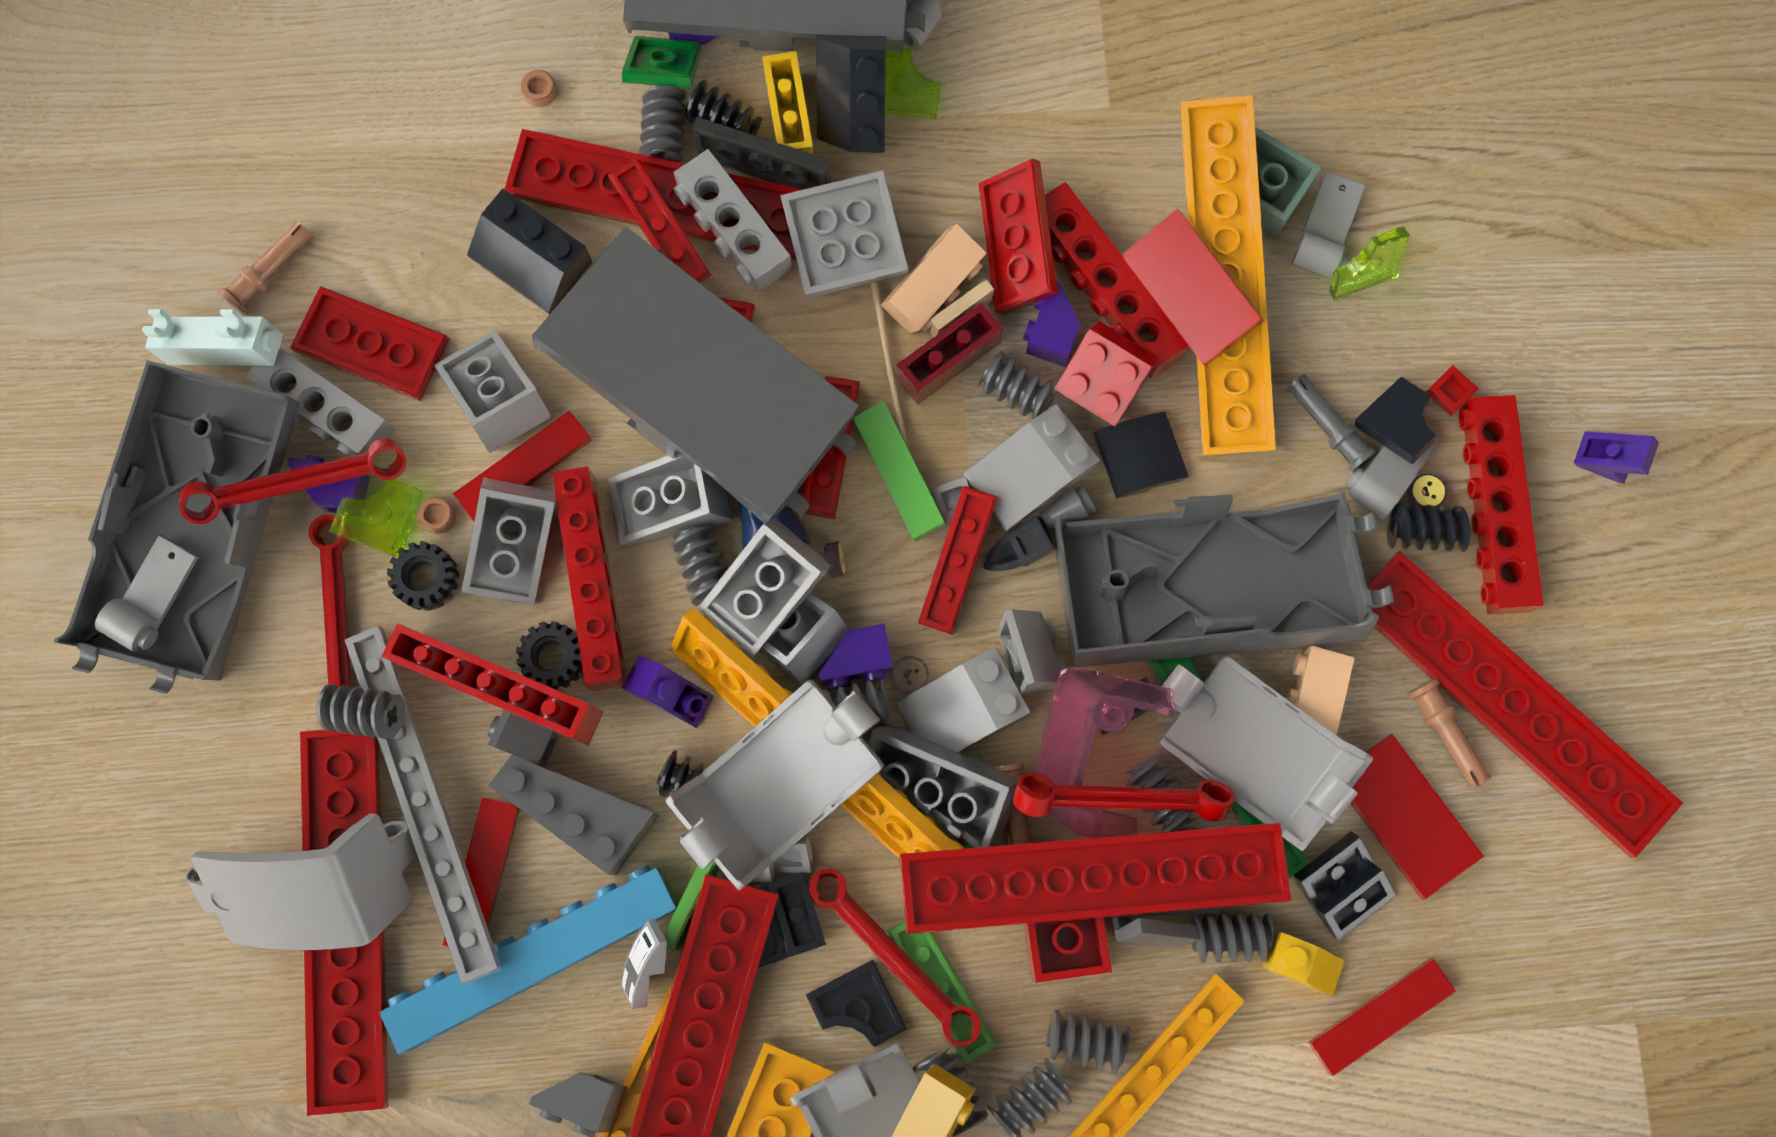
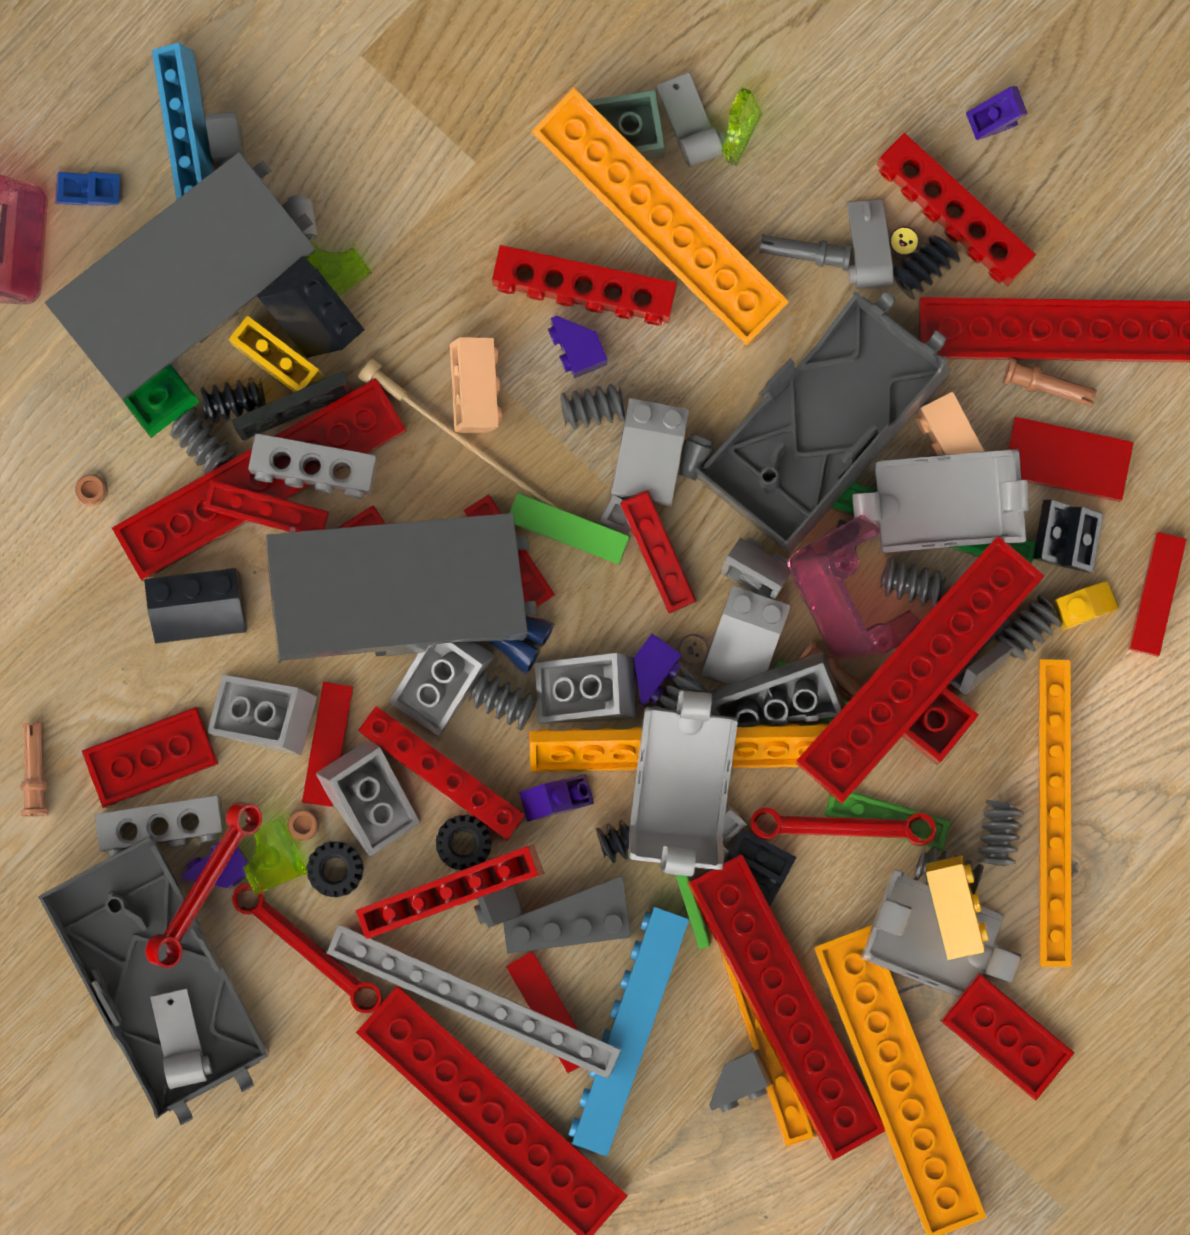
camera: 45 degrees left, 5 degrees up
(213, 340) = (57, 847): light aqua brick -> none
(311, 896) = (463, 1120): light grey panel -> none
(360, 711) = (388, 984): dark grey piece -> none
(644, 959) = (699, 967): slope -> none
(764, 586) = (560, 678): light grey slope -> none
(835, 557) = (581, 621): tile -> none
(844, 234) = (392, 408): light grey plate -> none
(858, 1002) = (846, 872): black tile -> none
(949, 353) = (530, 425): dark red brick -> none
(981, 293) = (510, 388): tan tile -> none
(1017, 237) = (502, 309): red tile -> none
(1020, 547) = (687, 507): black plate -> none
(1038, 793) = (945, 560): red piece -> none
(1086, 1041) = (1000, 770): dark grey piece -> none
(1106, 373) = (642, 348): brick -> none
(1140, 454) = (707, 380): black slope -> none
(1192, 287) = (645, 245): tile -> none
(1398, 420) = (845, 213): black tile -> none
(1452, 390) = (862, 161): red plate -> none

